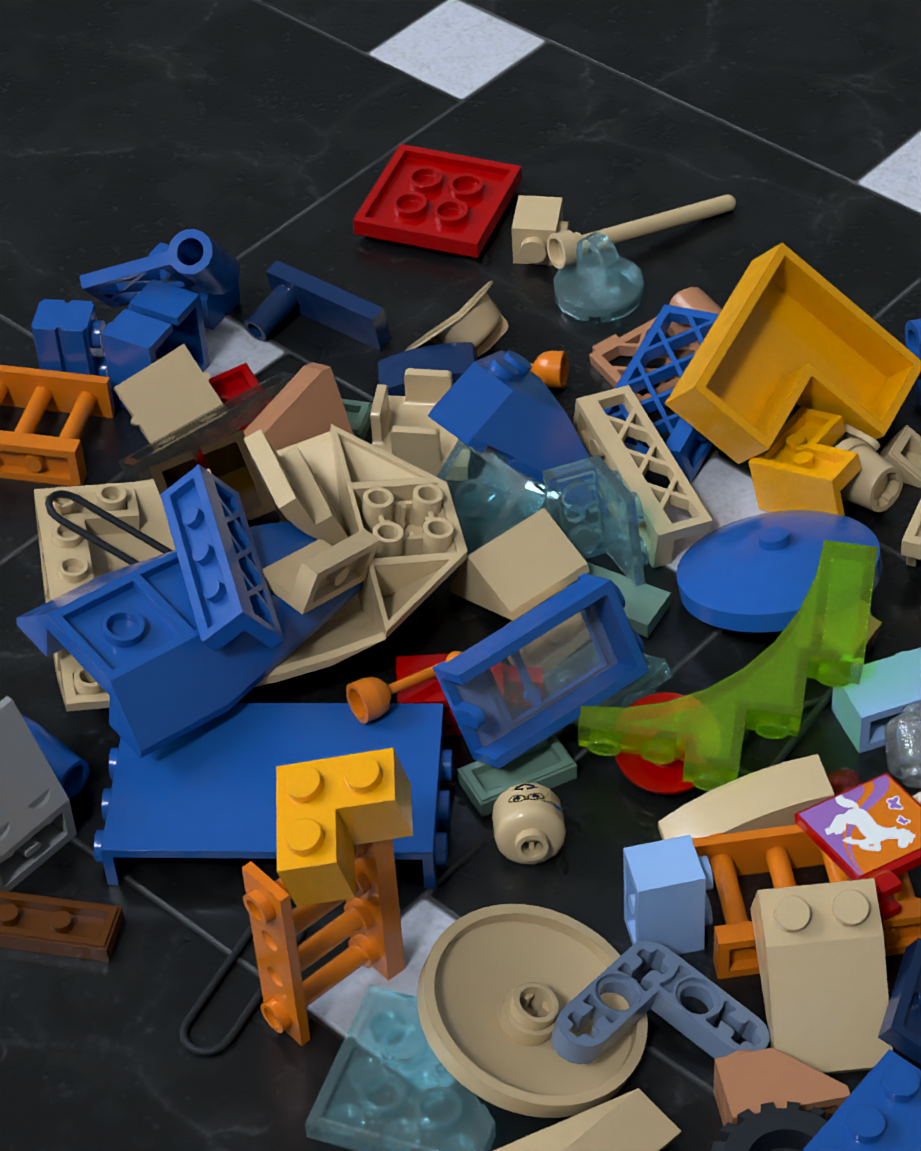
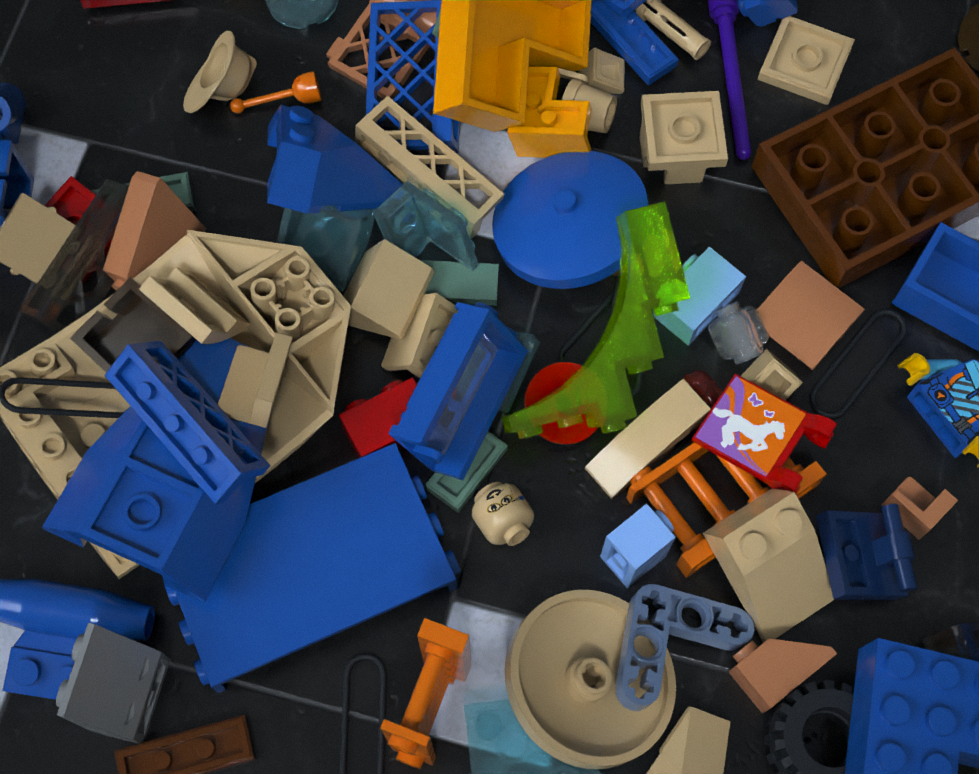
camera: 30 degrees left, 25 degrees up
(319, 302) = (72, 87): dark blue piece -> none
(328, 810) = (424, 663): light orange brick -> none
(371, 696) = (346, 466): orange hinge -> none
(403, 425) = (236, 182): tan panel -> none
(443, 356) = (216, 122): dark blue slope -> none

